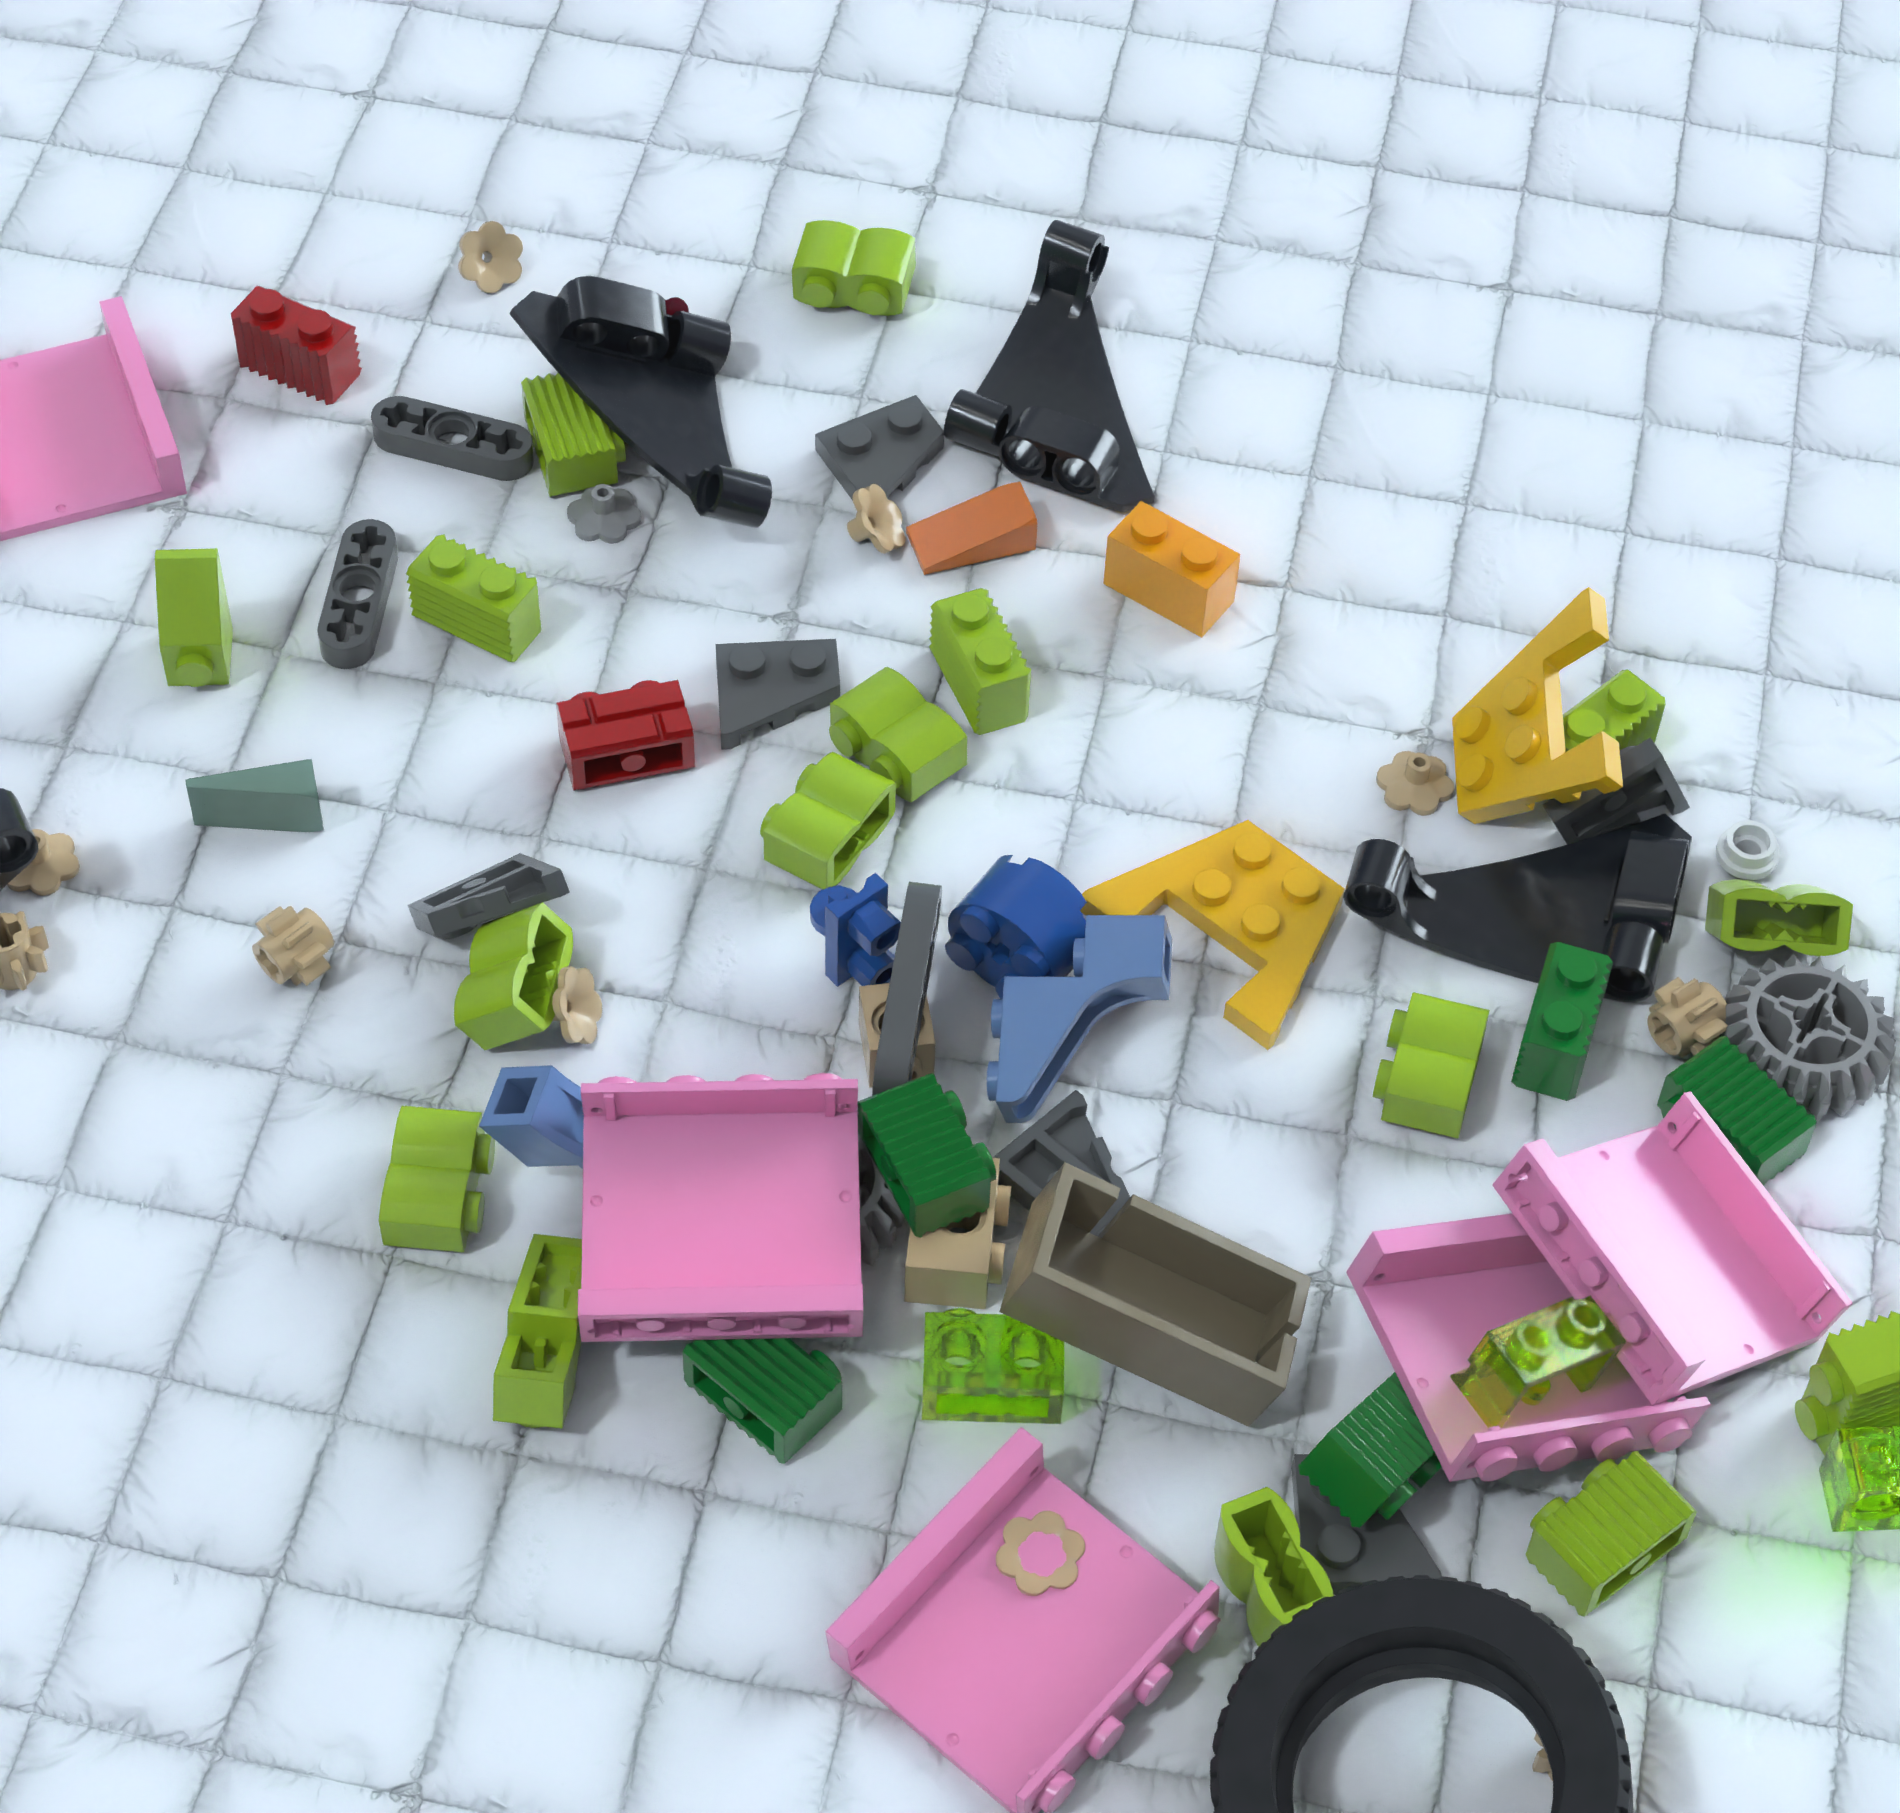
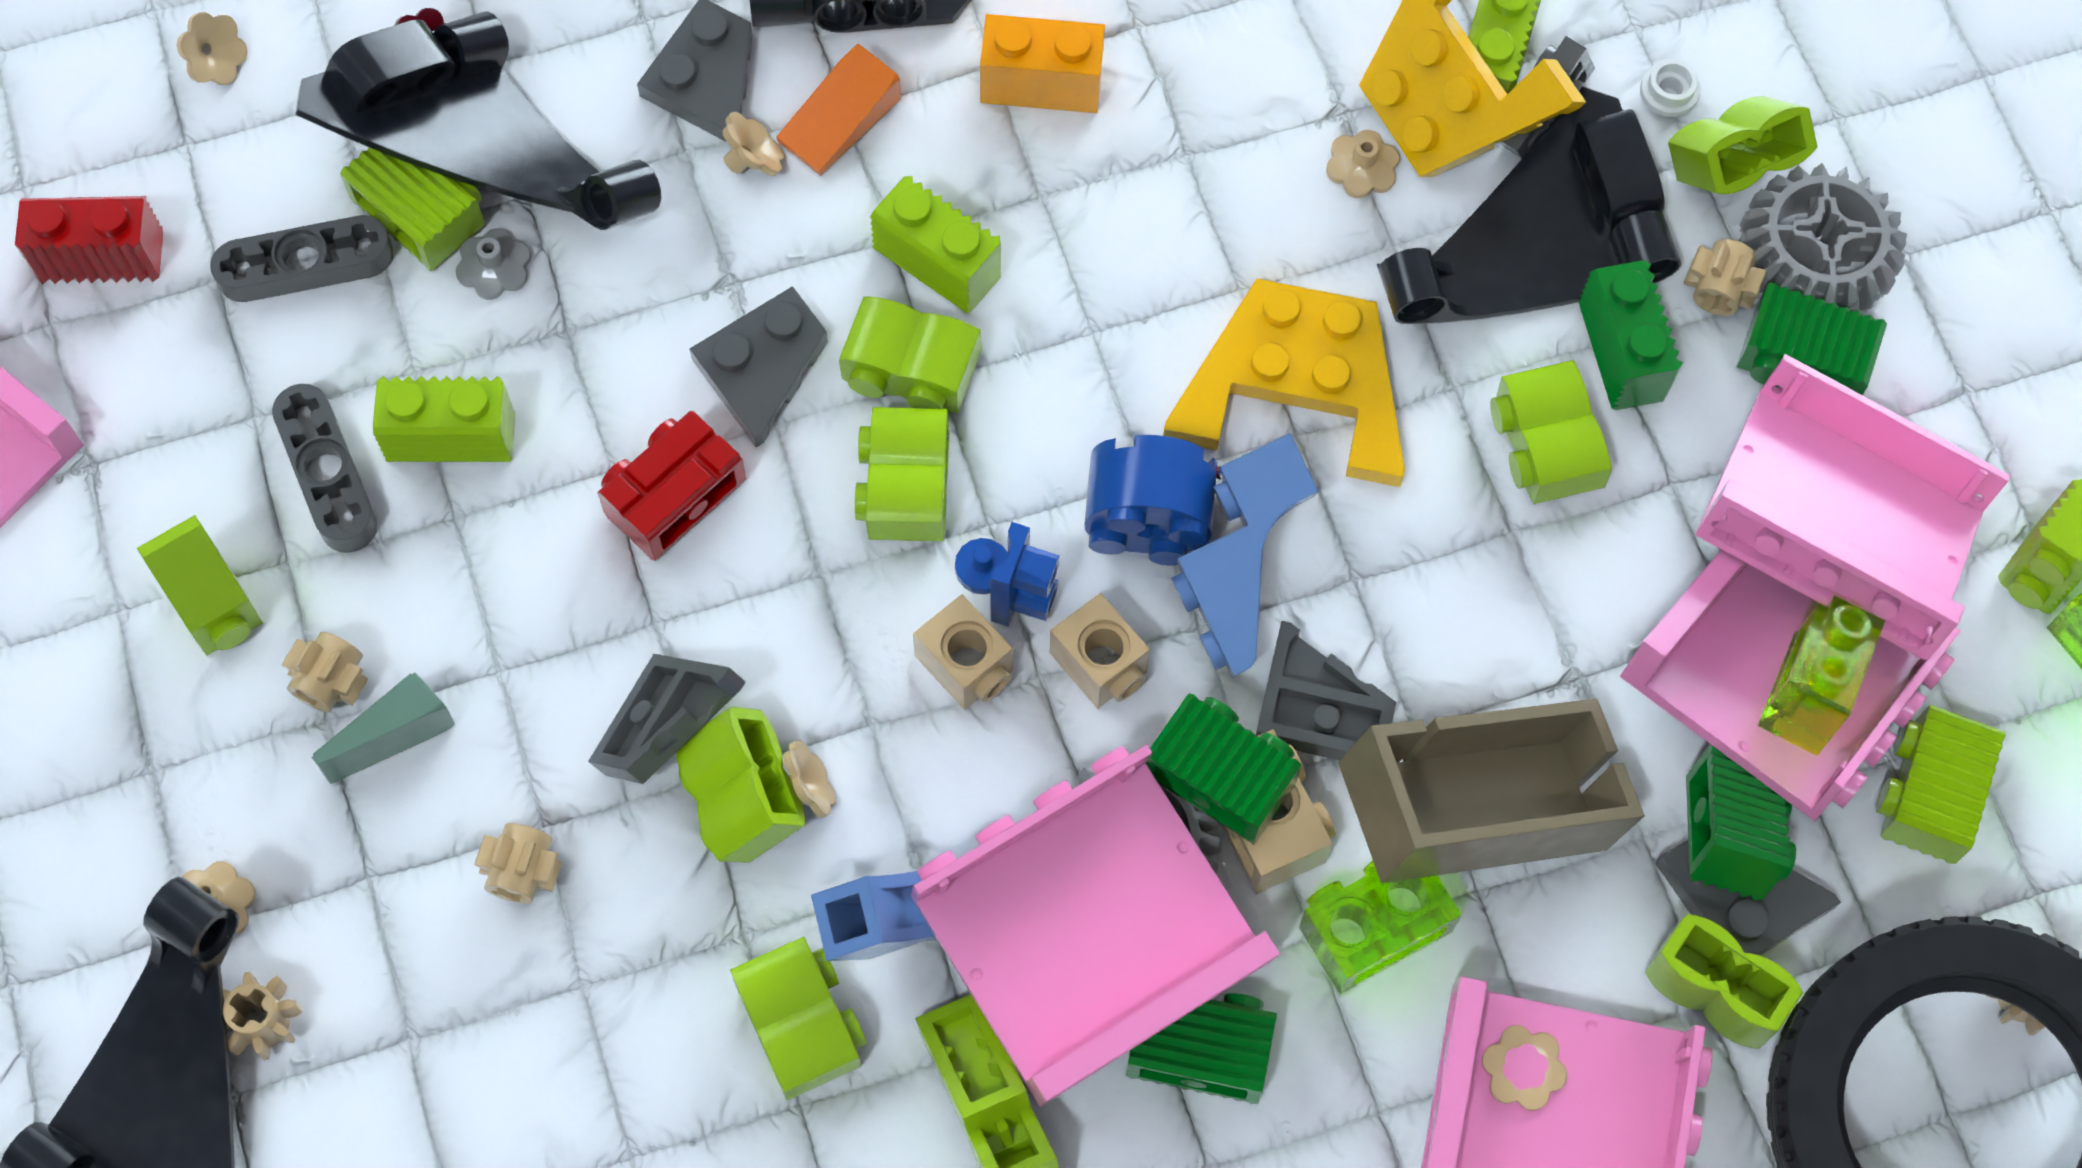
camera: 30 degrees left, 15 degrees up
(245, 732) = (325, 672): none -> tan gear
(772, 956) = (961, 627): none -> tan brick
(908, 987) = (1106, 619): dark grey beam -> none

